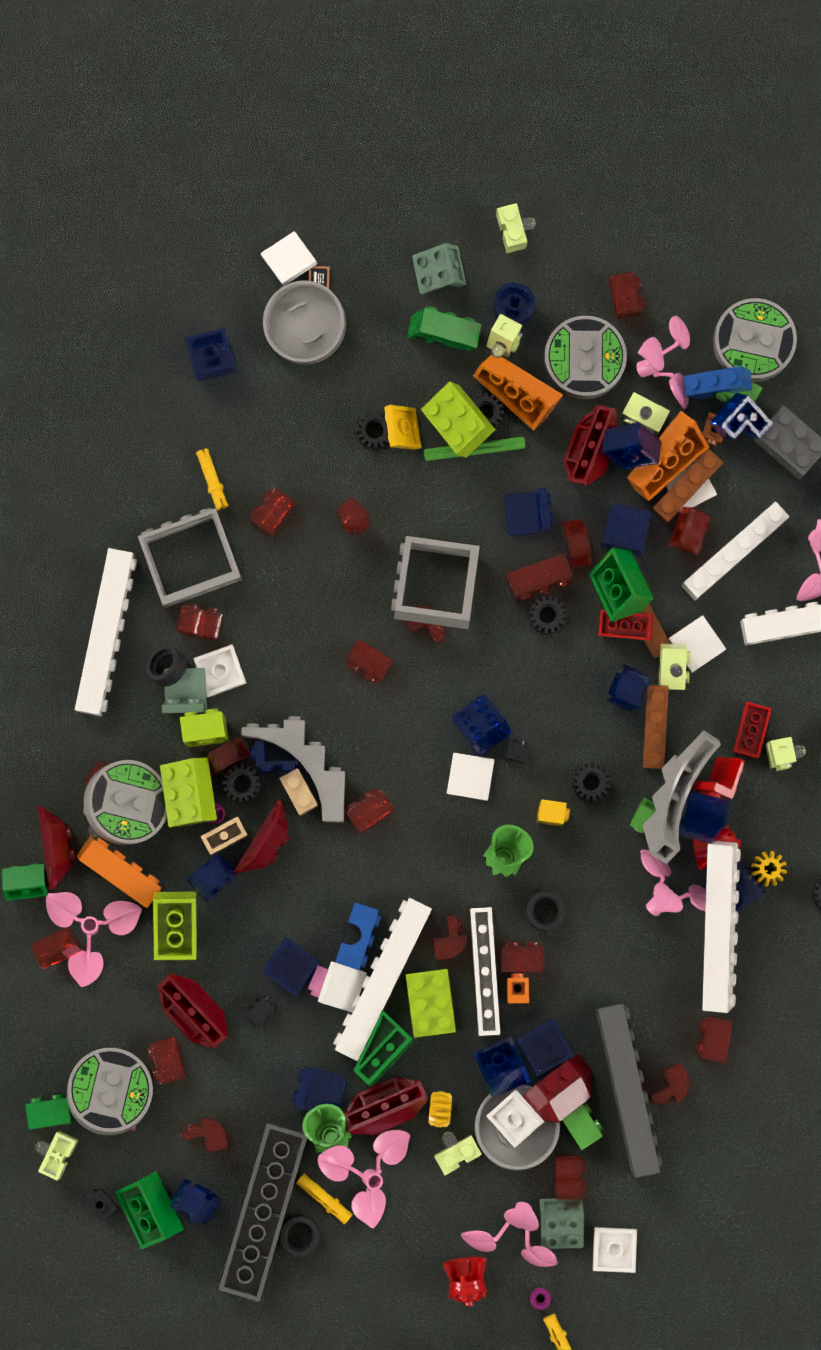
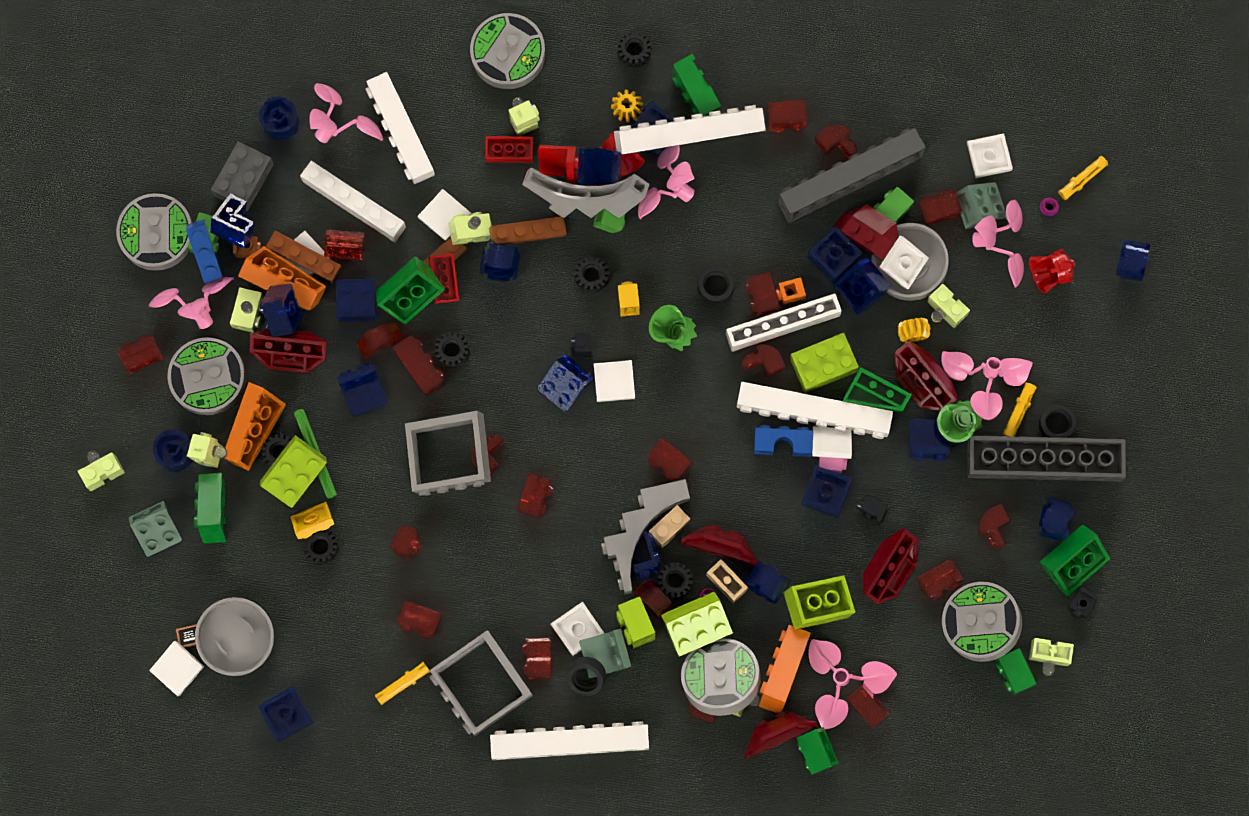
camera: 100 degrees left, 5 degrees down
(768, 947) = (694, 87): none -> green wedge

